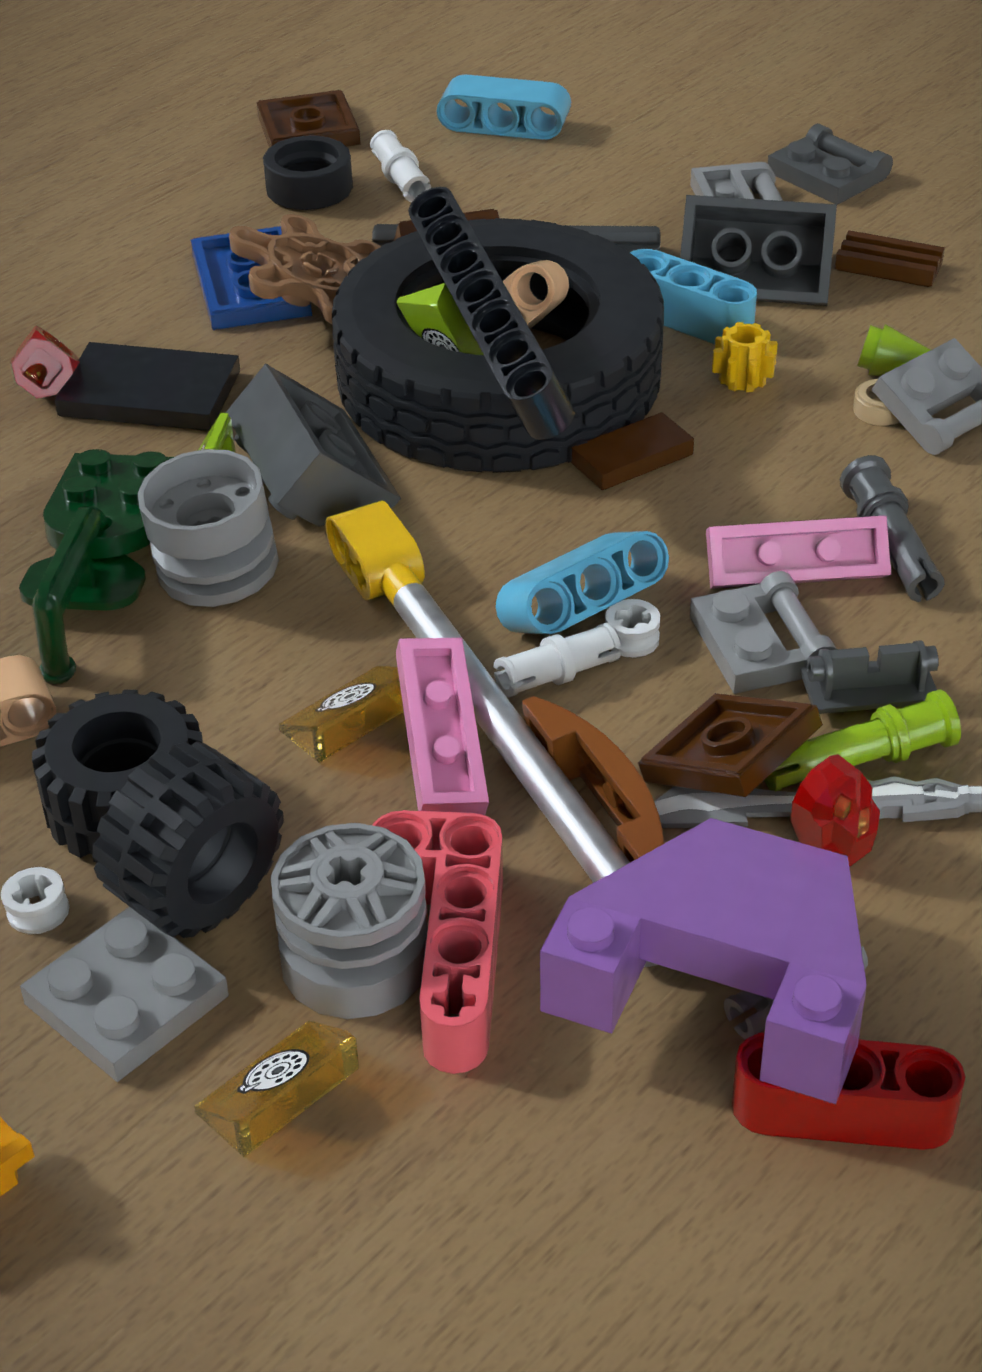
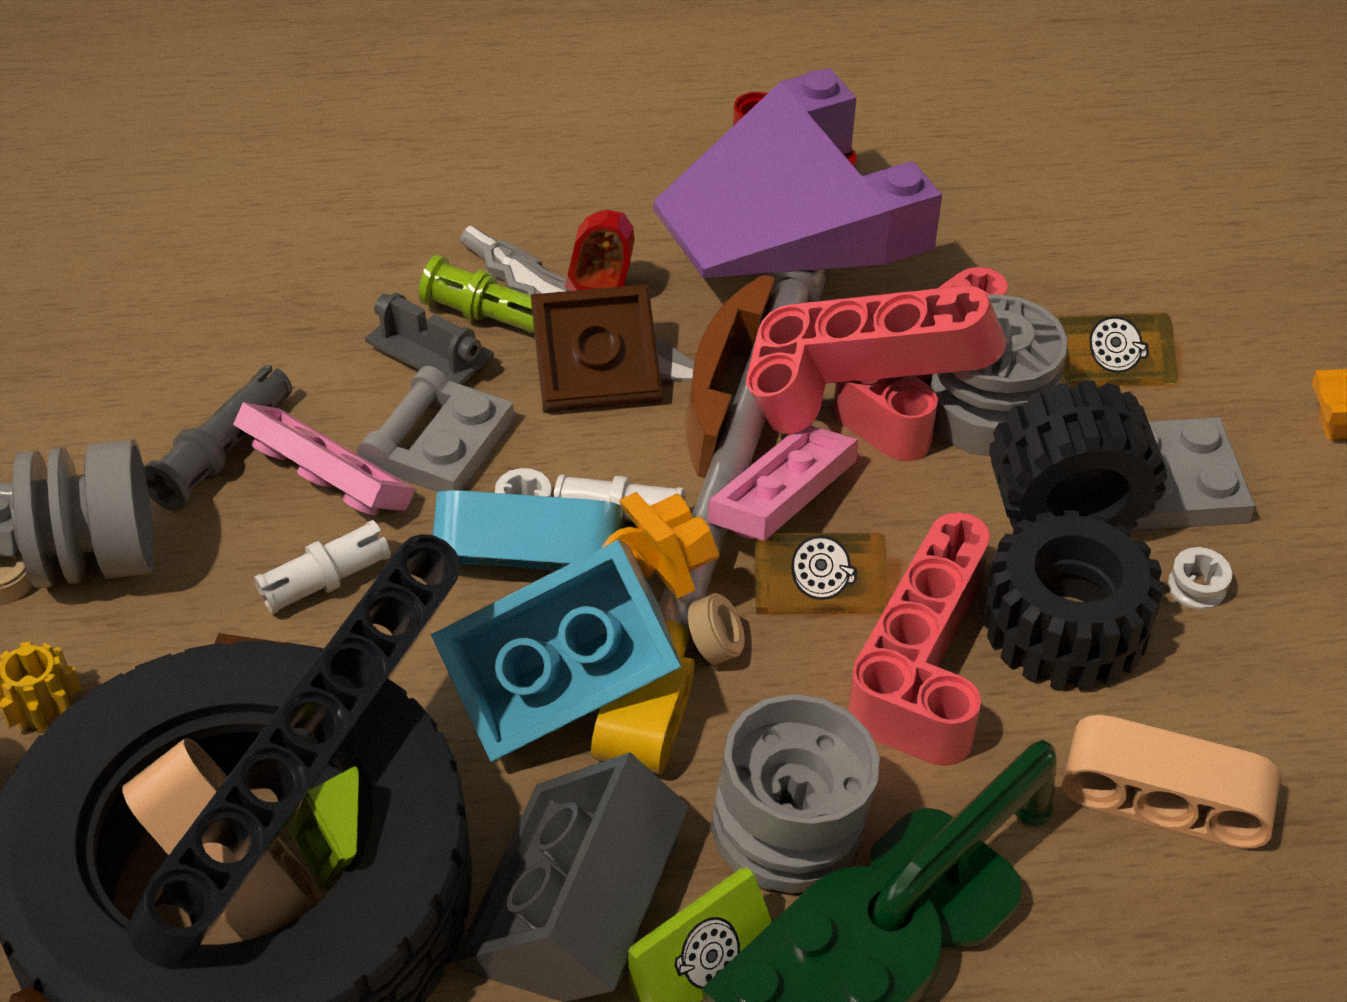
camera: 140 degrees left, 5 degrees up
(210, 653) = (897, 675): none -> coral beam
(380, 614) = (716, 628): none -> tan tile
(456, 509) = (557, 649): none -> medium azure slope
(464, 596) = (667, 540): none -> light orange hips
(502, 792) = (865, 340): none -> coral beam
(692, 504) = (322, 567): none -> white pin
(855, 401) = (69, 514): none -> light grey wheel

